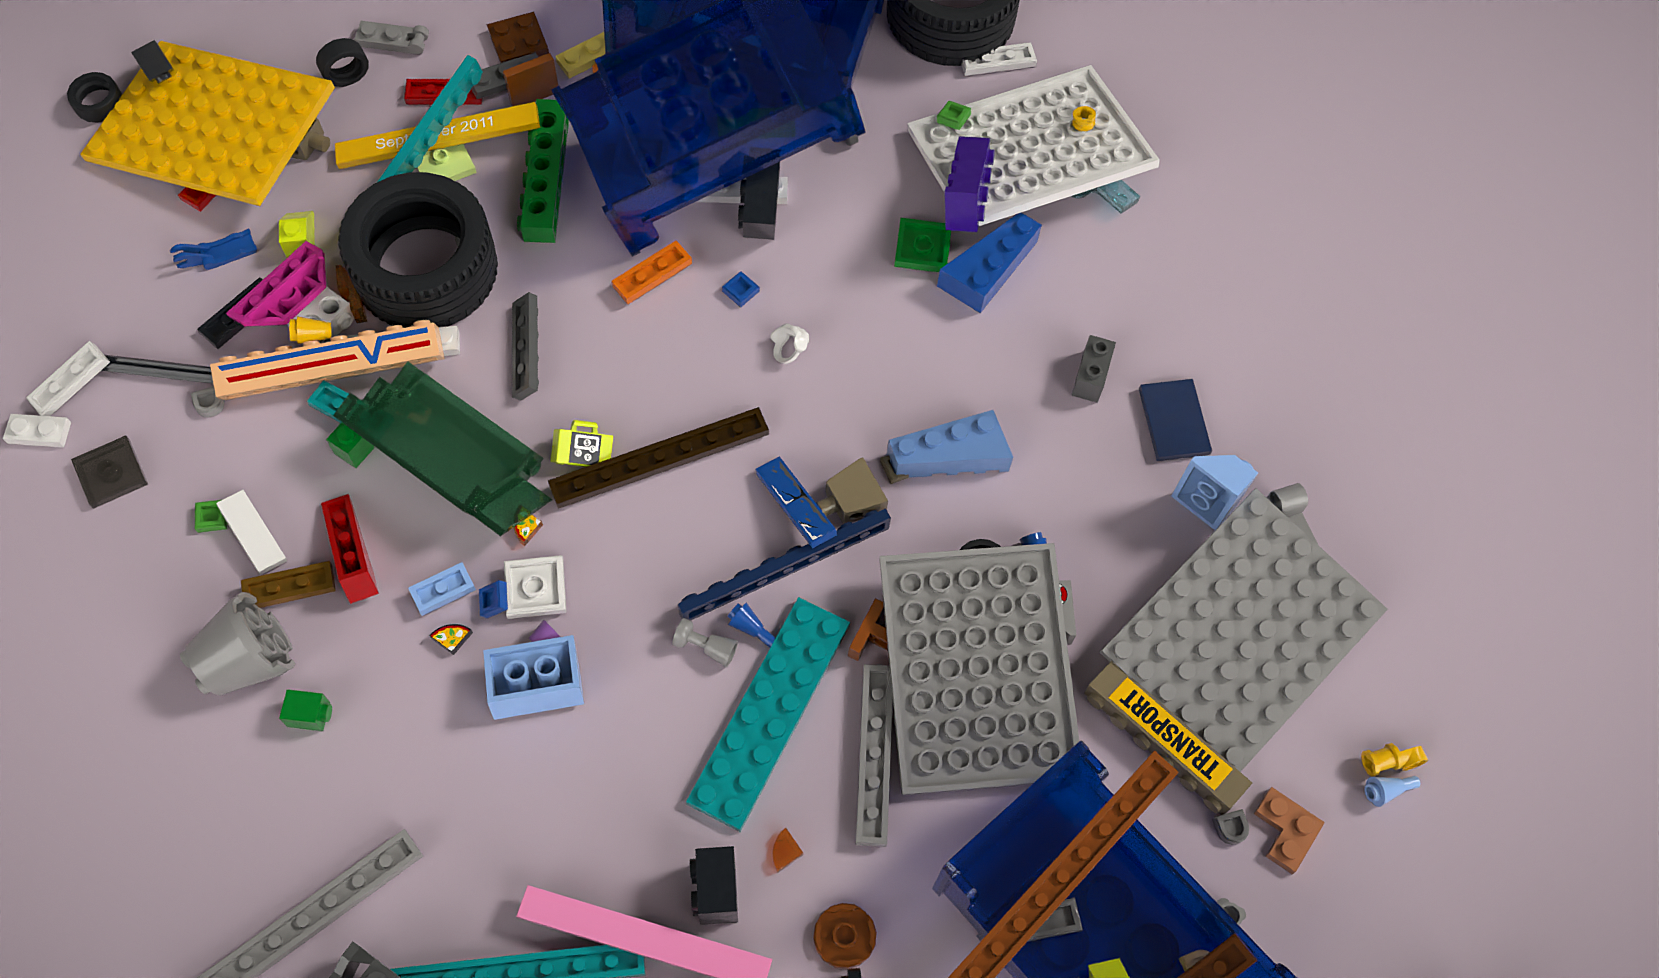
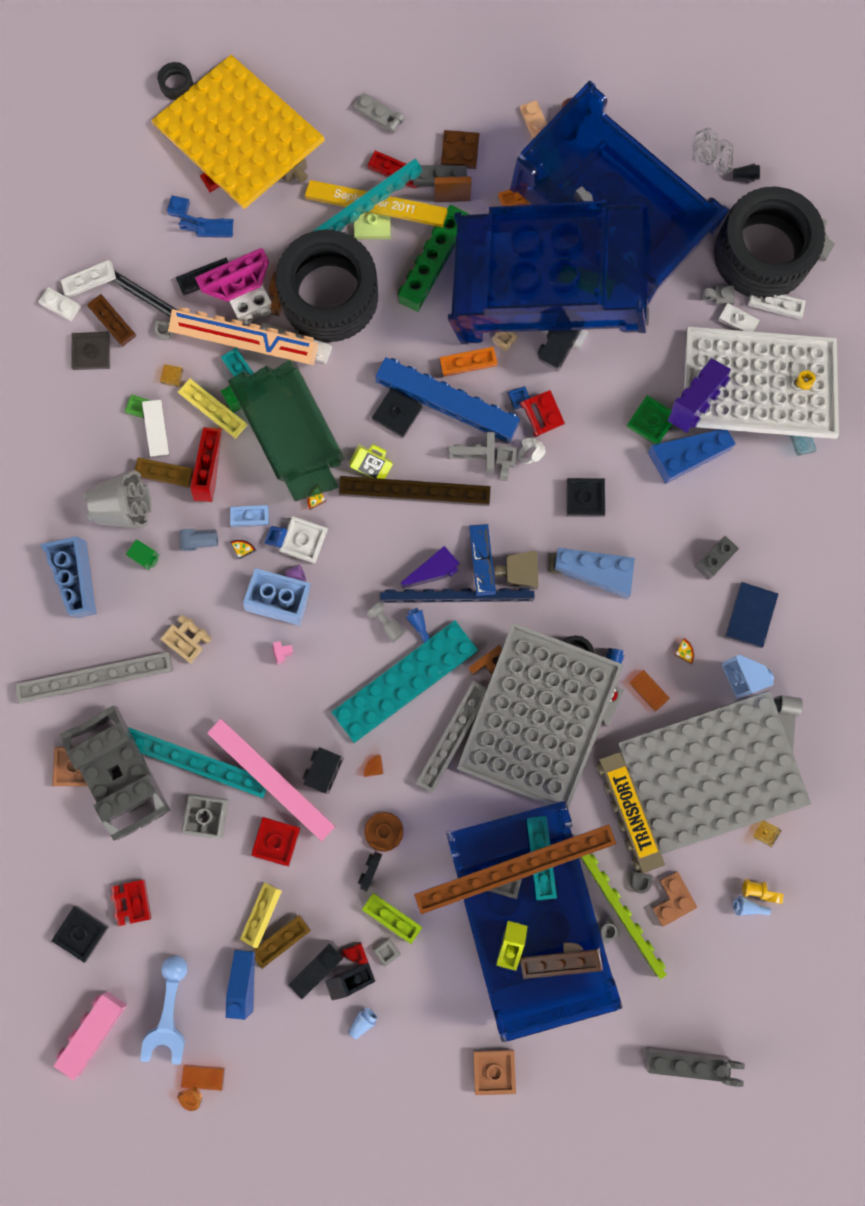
camera: 30 degrees right, 15 degrees up
(125, 419) = (111, 320): none -> reddish brown plate
(153, 62) = (218, 73): black slope -> none
(161, 242) = (178, 206): none -> blue plate
(207, 783) = (72, 574): none -> medium blue wedge
(244, 455) = (171, 375): none -> clear yellow plate
(295, 230) = (261, 235): neon yellow slope -> none
(308, 329) = (238, 312): yellow cone -> none
(324, 472) = (212, 408): none -> light yellow plate
(341, 49) = (337, 114): black tyre -> none
(371, 656) = (192, 539): none -> sand blue piece
(420, 808) = (181, 643): none -> tan plate
(525, 346) = (366, 378): dark grey plate -> none
(573, 751) = (281, 652): none -> bright pink tile
(581, 56) = (495, 181): light yellow plate -> none
(587, 372) = (397, 412): none -> black plate
(646, 327) = (447, 400): none -> blue brick
(685, 227) = (504, 339): none -> tan tile
(719, 374) = (477, 451): none -> light grey bracket
(736, 544) = (435, 568): none -> dark purple slope
(762, 366) = (506, 458): none -> light grey plate
(783, 286) = (547, 410): none -> red plate
(889, 369) = (585, 497): none -> black plate
(927, 74) = (721, 295): none -> light grey plate
(954, 115) = (721, 335): bright green tile -> none
(962, 91) = (738, 319): none -> white plate
(1101, 571) = (649, 690): none -> clear orange tile
(1104, 878) = (539, 838): none -> teal plate
(1120, 501) = (685, 651): none -> tile
(1237, 883) = (624, 915): none -> lime plate
(1354, 679) = (767, 833): none -> clear yellow plate

